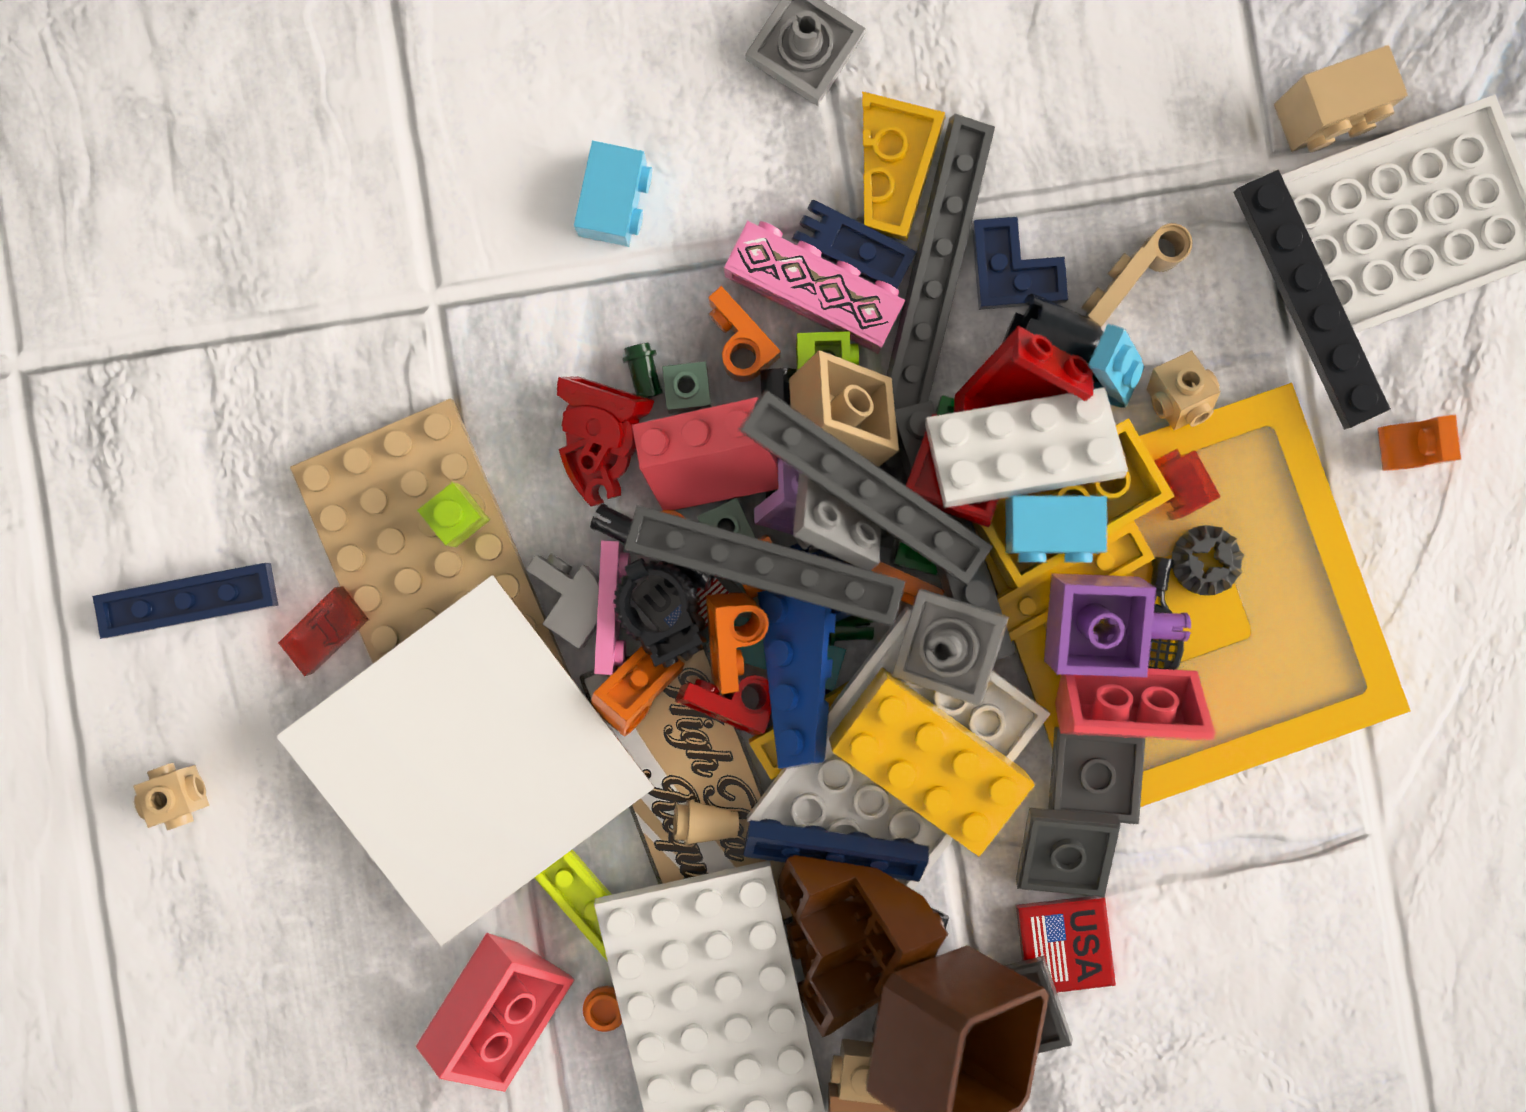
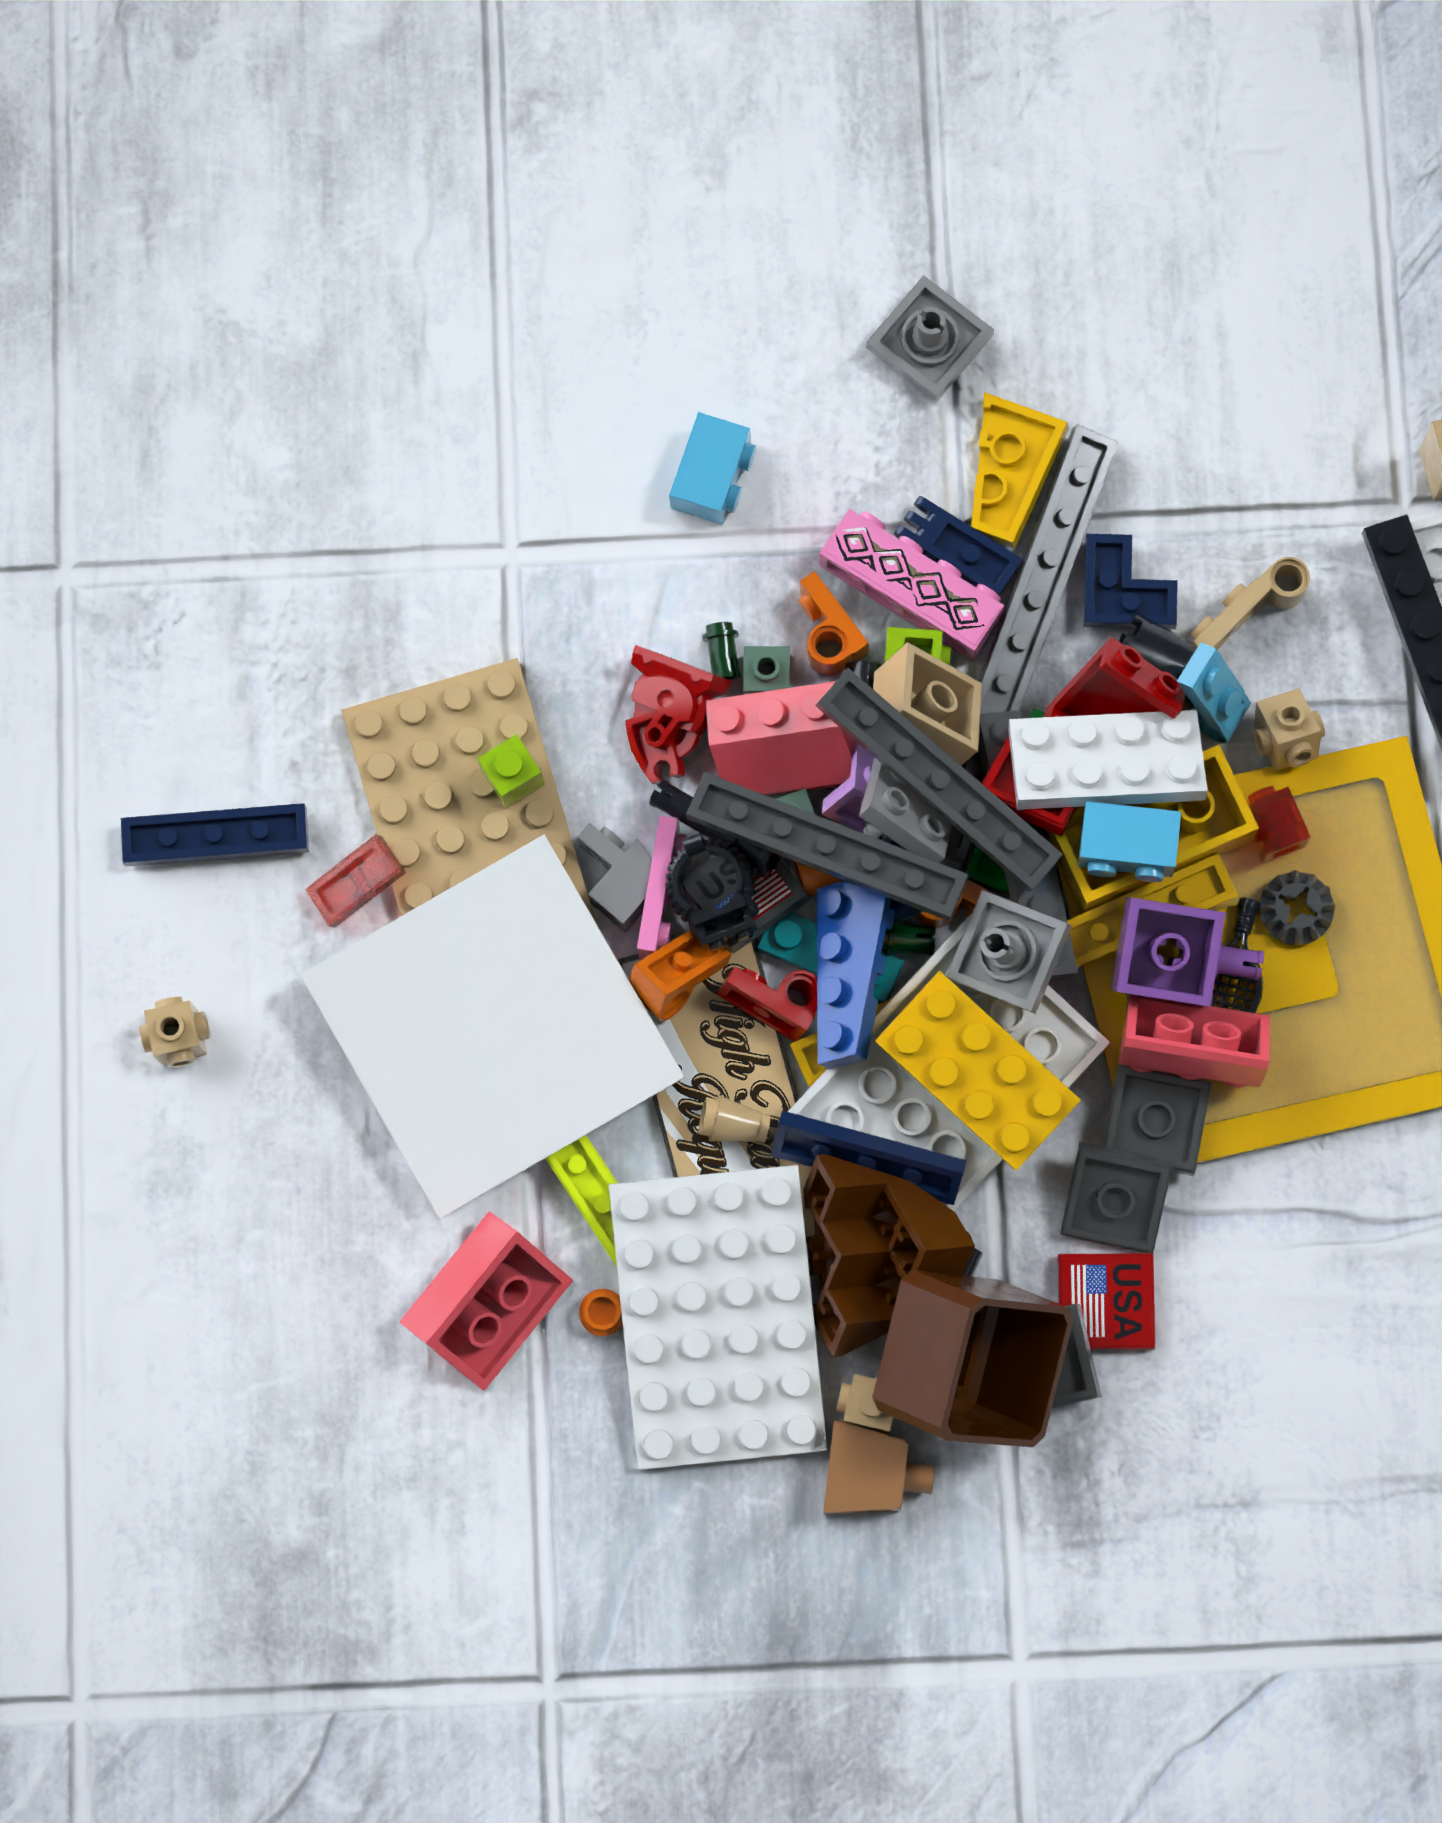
camera: 15 degrees right, 10 degrees down
(724, 637) = (775, 950): orange plate -> none

